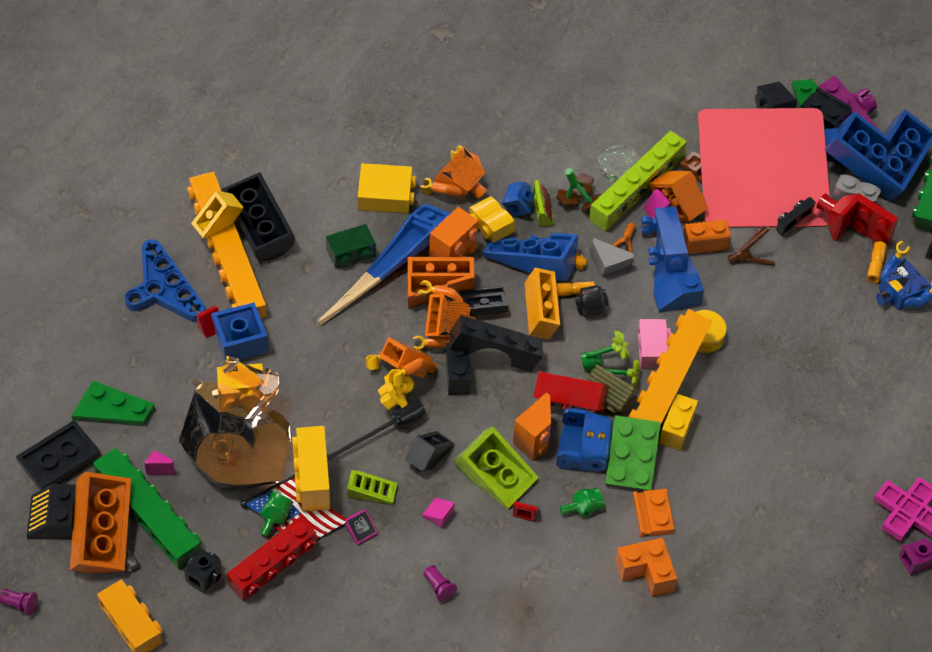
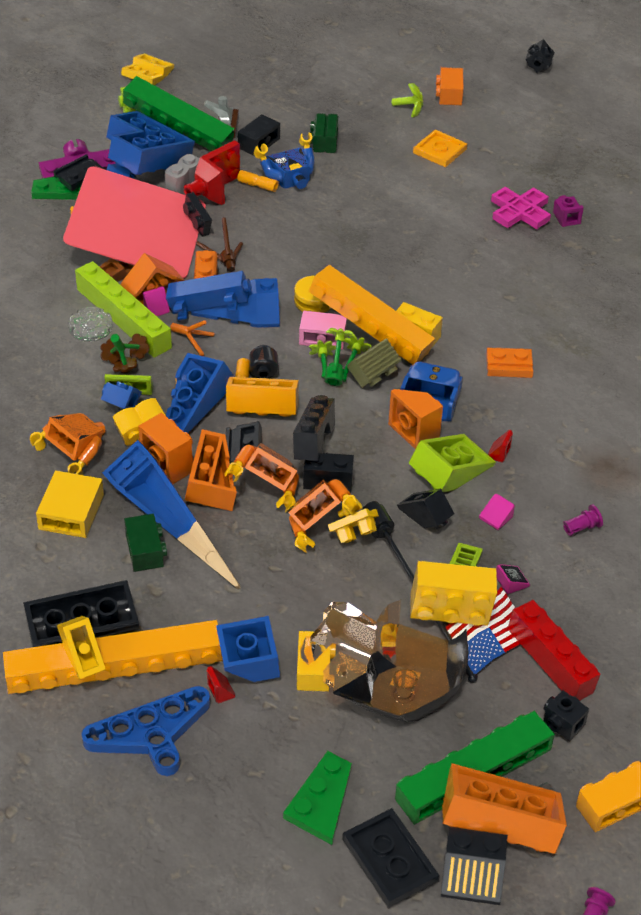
camera: 80 degrees left, 10 degrees down
(159, 464) = (414, 750): dark pink slope -> none
(275, 512) = (492, 644): green piece -> none
(571, 391) = (376, 387): red brick -> none
(585, 502) = (497, 403): green piece -> none
(608, 257) = (214, 342): light grey slope -> none
(633, 453) = (446, 351): bright green plate -> none
(648, 560) = (571, 367): orange brick -> none
(774, 96) = (57, 200): black brick -> none

